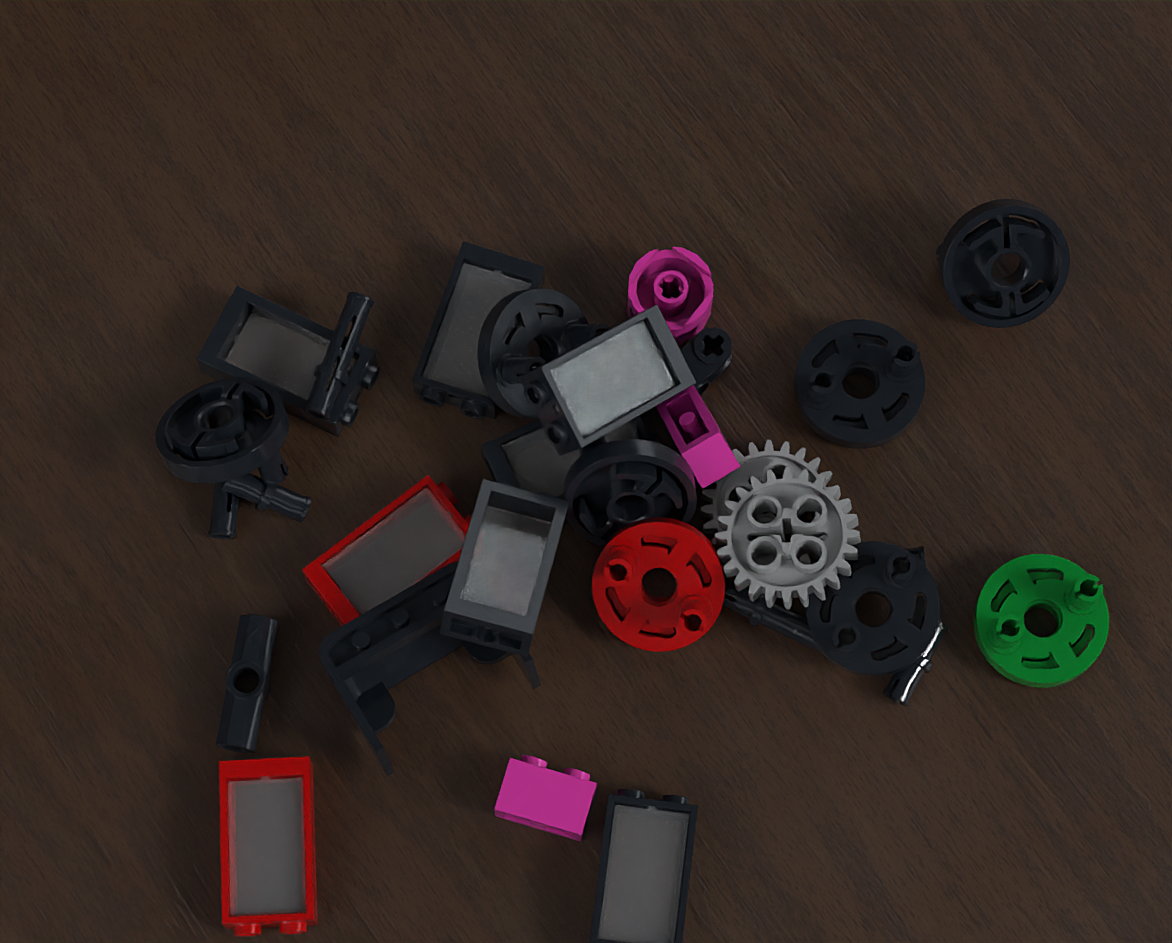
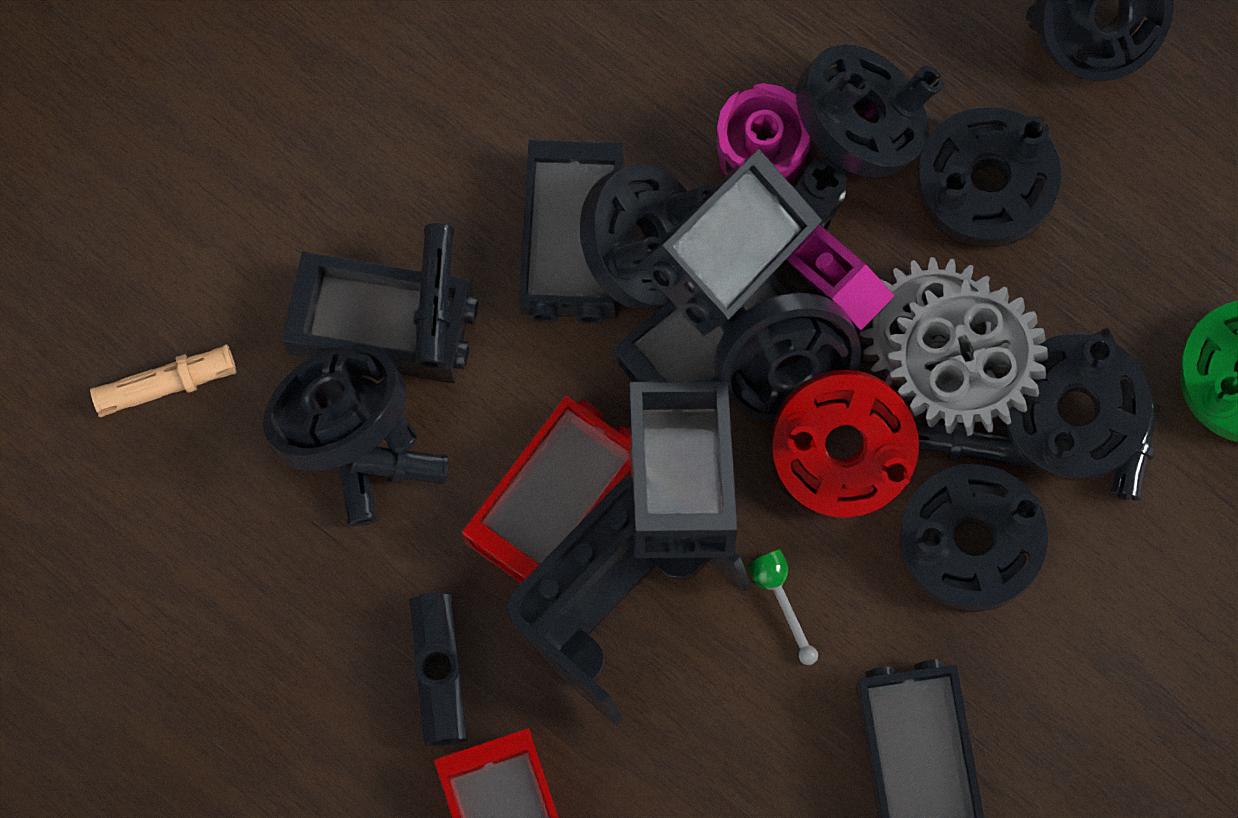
camera: 10 degrees left, 0 degrees up
(77, 366) = (171, 378): none -> light nougat pin
(546, 797) = (792, 701): dark pink brick -> none
(561, 680) = (770, 574): none -> hinge
(788, 698) = (1013, 525): none -> black piece
(789, 290) = (882, 95): none -> black piece

